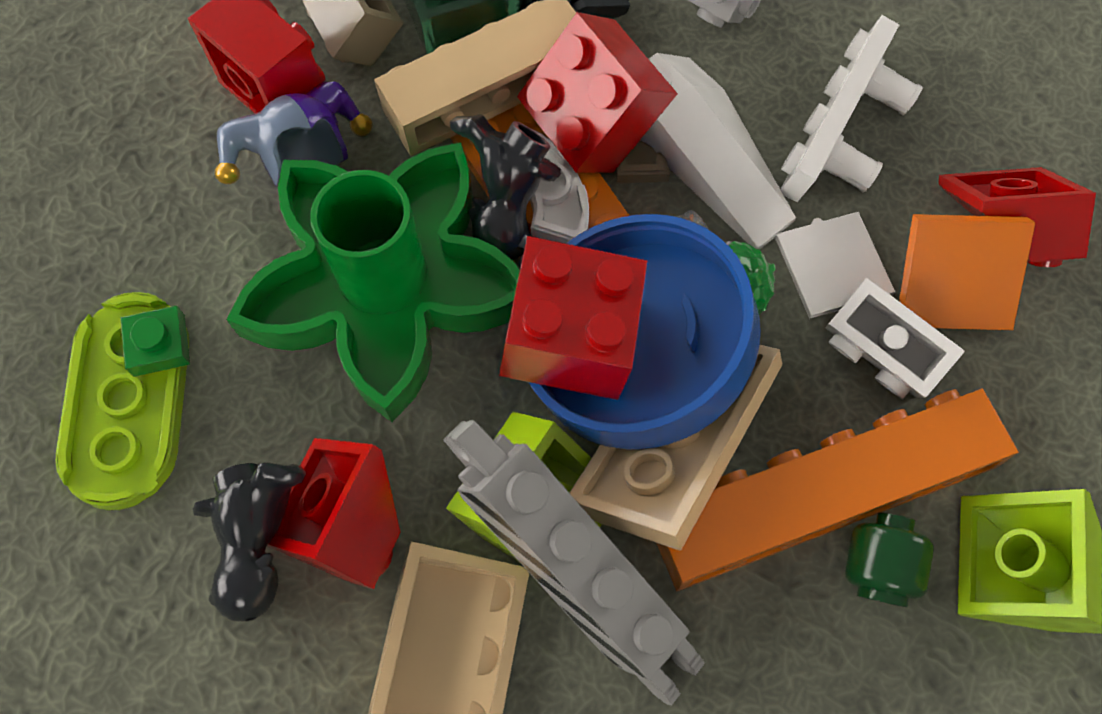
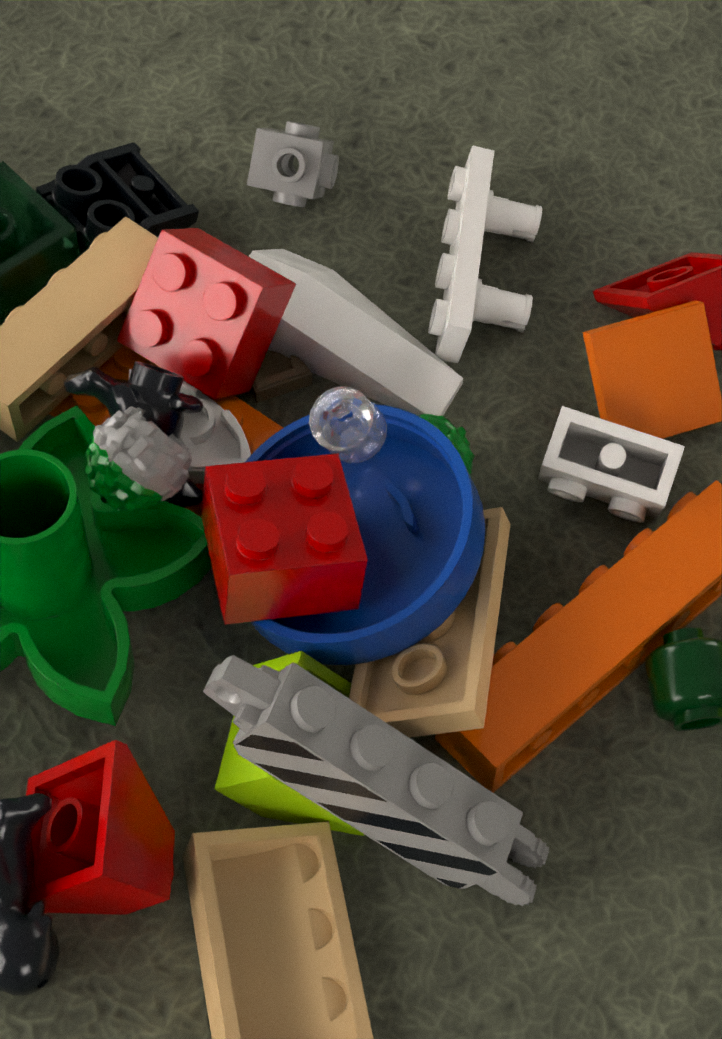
camera: 25 degrees left, 10 degrees down
(477, 211) = (135, 462): none -> light grey piece
(677, 246) = (360, 434): none -> clear wheel
(831, 262) = (514, 411): white piece -> none

